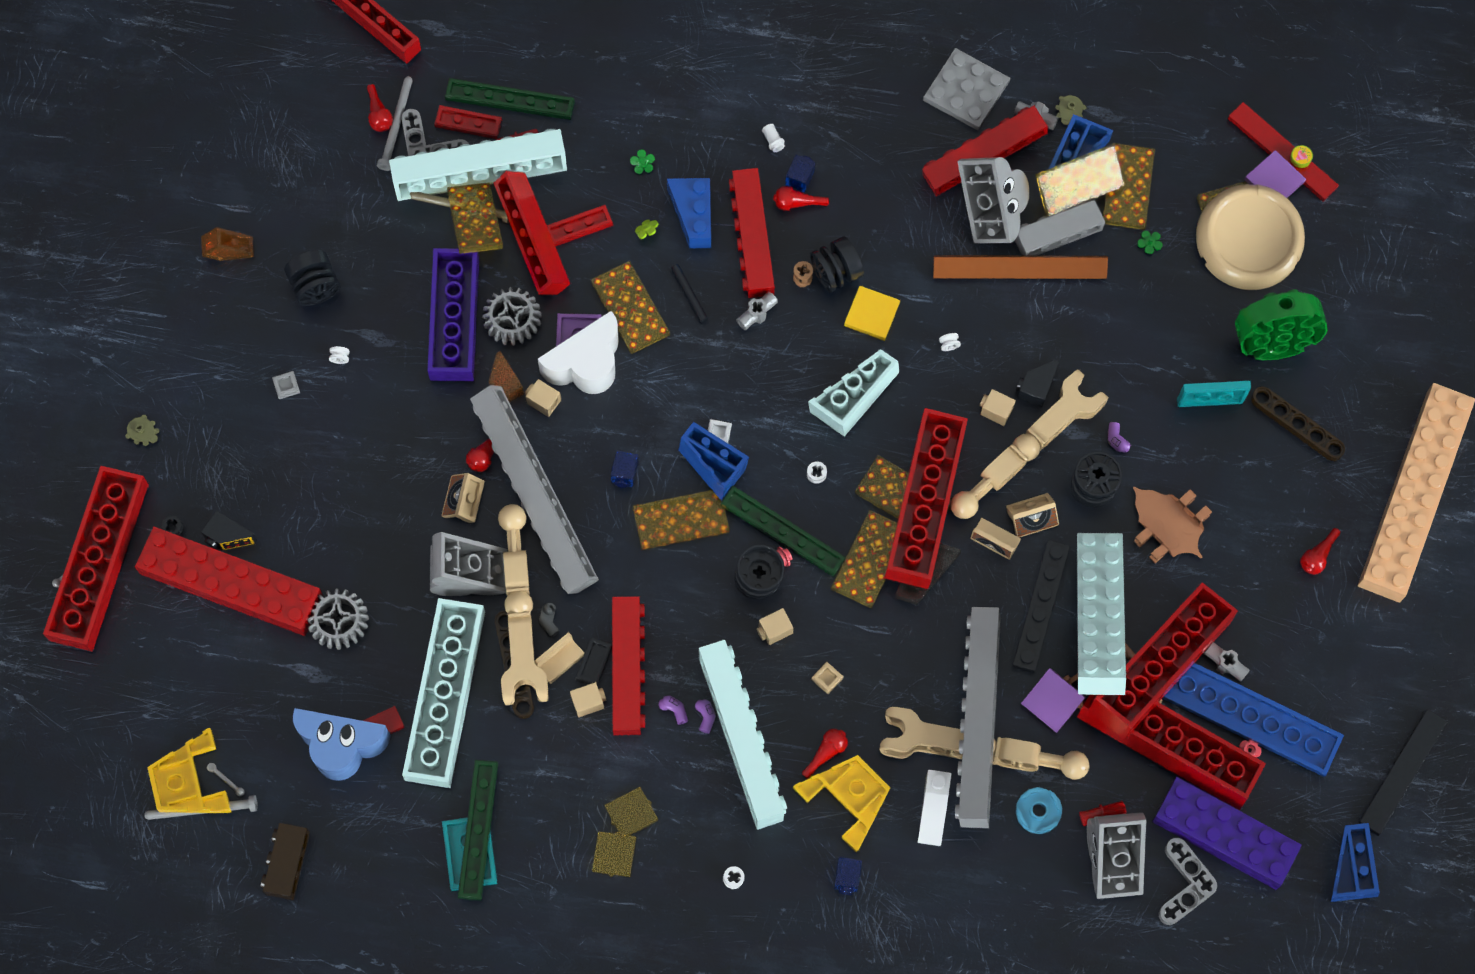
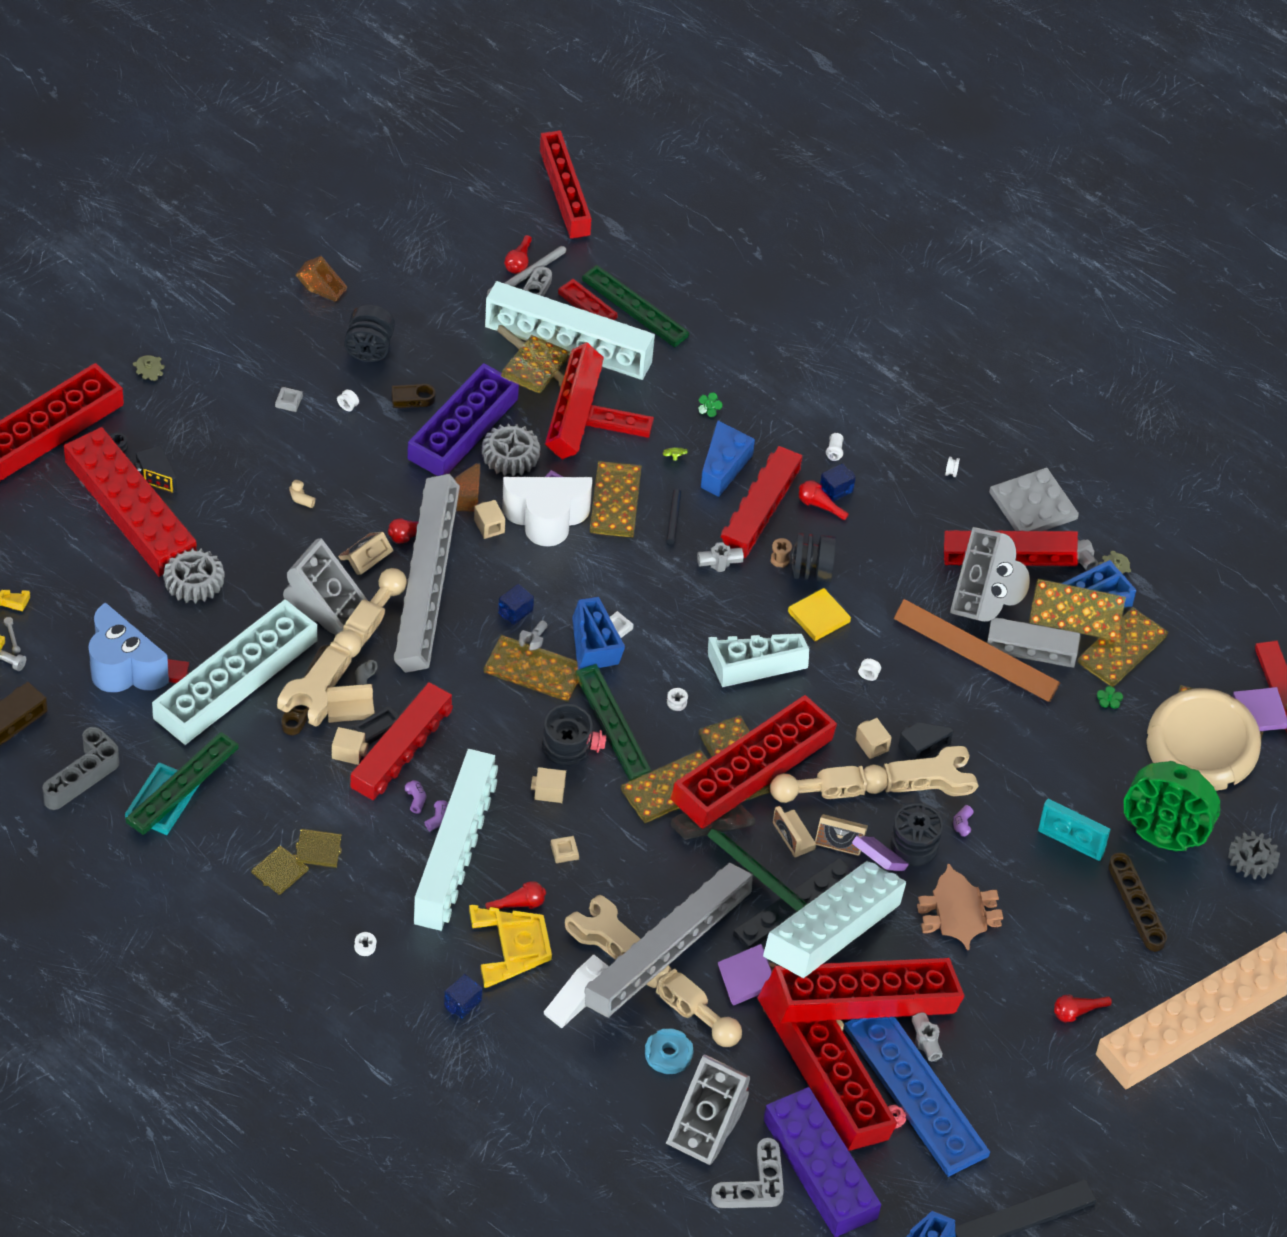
camera: 30 degrees right, 20 degrees down
(365, 477) = (299, 496): none -> tan arm
(382, 877) = (99, 760): none -> dark grey beam
(383, 317) = (407, 395): none -> dark brown piece
(660, 489) = (534, 636): none -> light grey bar
(880, 96) = (952, 466): none -> white bush
(1003, 600) = (757, 869): none -> dark green tile
(1080, 517) = (880, 853): none -> medium lavender tile
(1352, 326) = (1263, 861): none -> dark grey gear

